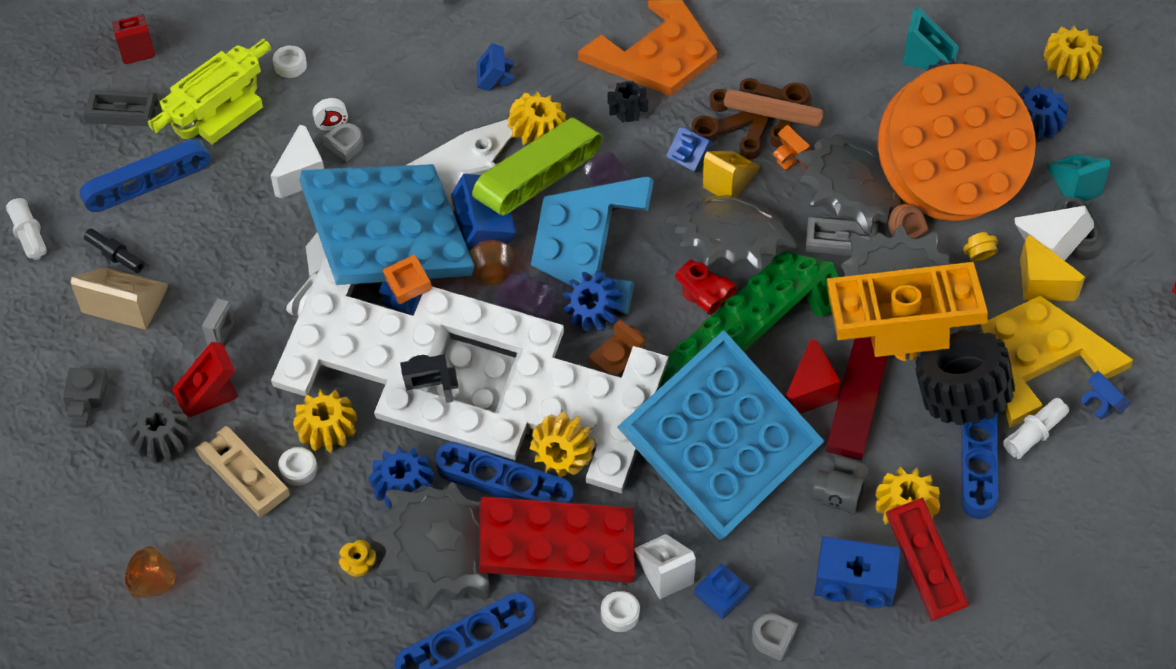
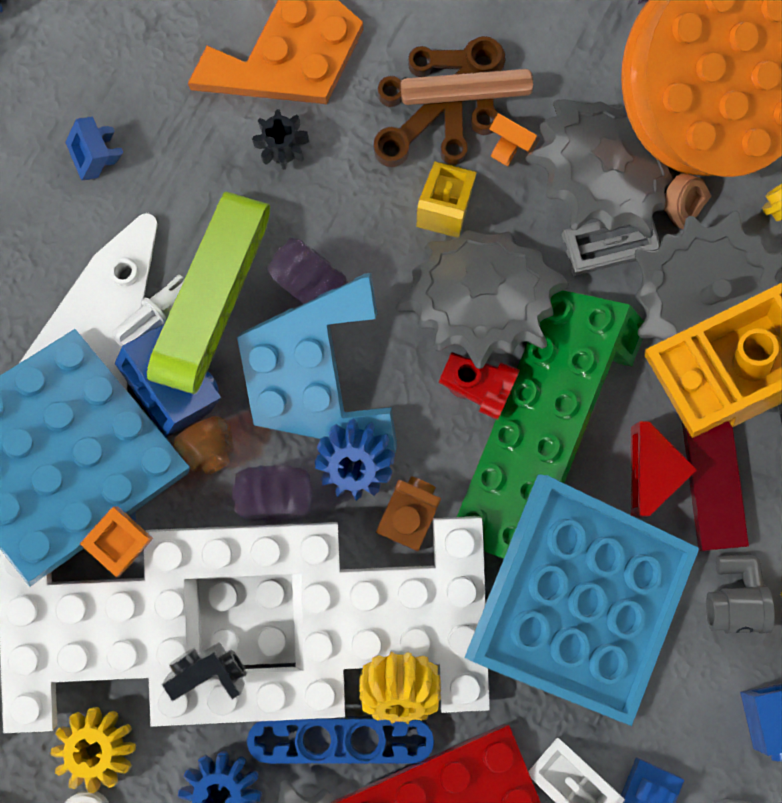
camera: 20 degrees left, 25 degrees up
(534, 116) = (172, 195): yellow gear -> none
(689, 149) = (384, 183): blue tile -> none

